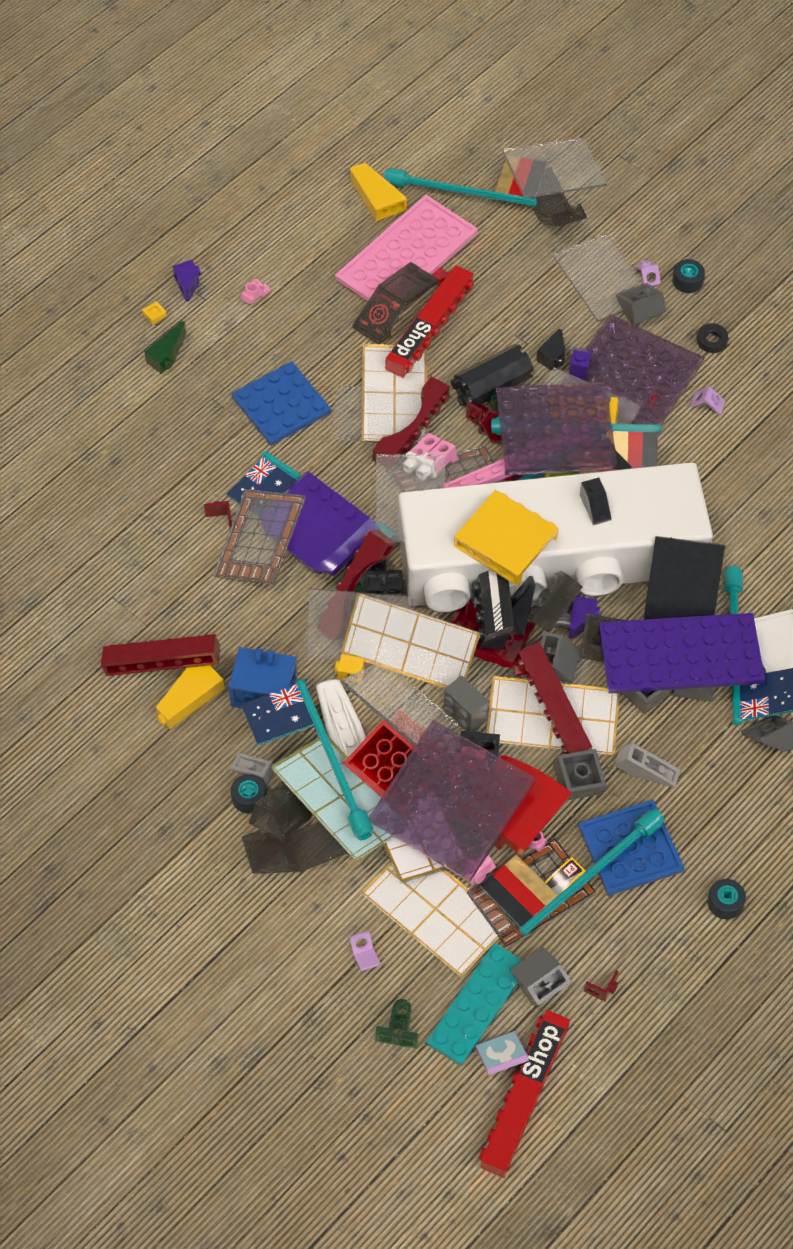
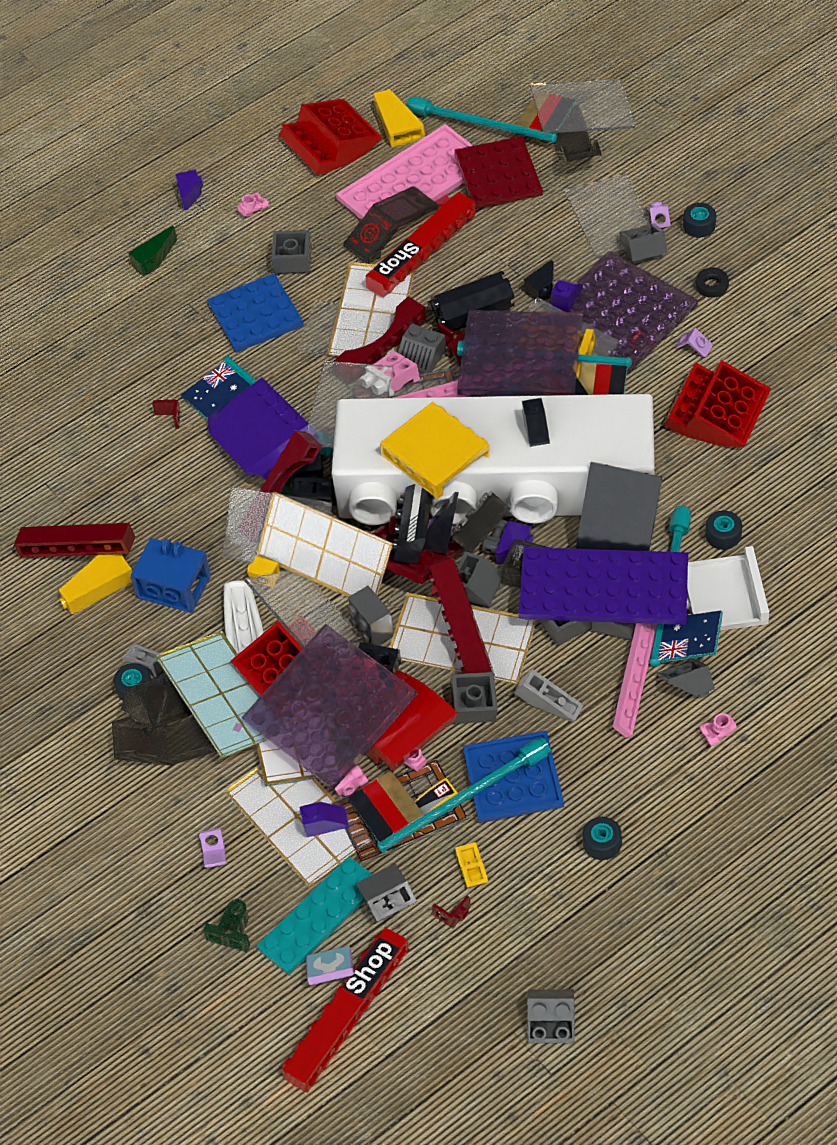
camera: 15 degrees right, 5 degrees down
(154, 313) = (149, 218): yellow plate -> none
(259, 536) = (201, 436): clear piece -> none
(291, 712) = (186, 605): flag -> none
(305, 338) = (291, 251): none -> dark grey brick
(314, 214) = (329, 135): none -> red slope
(453, 426) = (422, 347): none -> dark grey slope
(463, 909) = (323, 818): none -> dark purple slope
(488, 241) = (498, 172): none -> dark red plate
(610, 939) = (471, 865): none -> yellow slope
(716, 1075) = (551, 1016): none -> dark grey slope
(723, 741) = (634, 678): none -> bright pink plate
(744, 462) = (717, 405): none -> red slope
(775, 585) = (723, 529): none -> black wheel

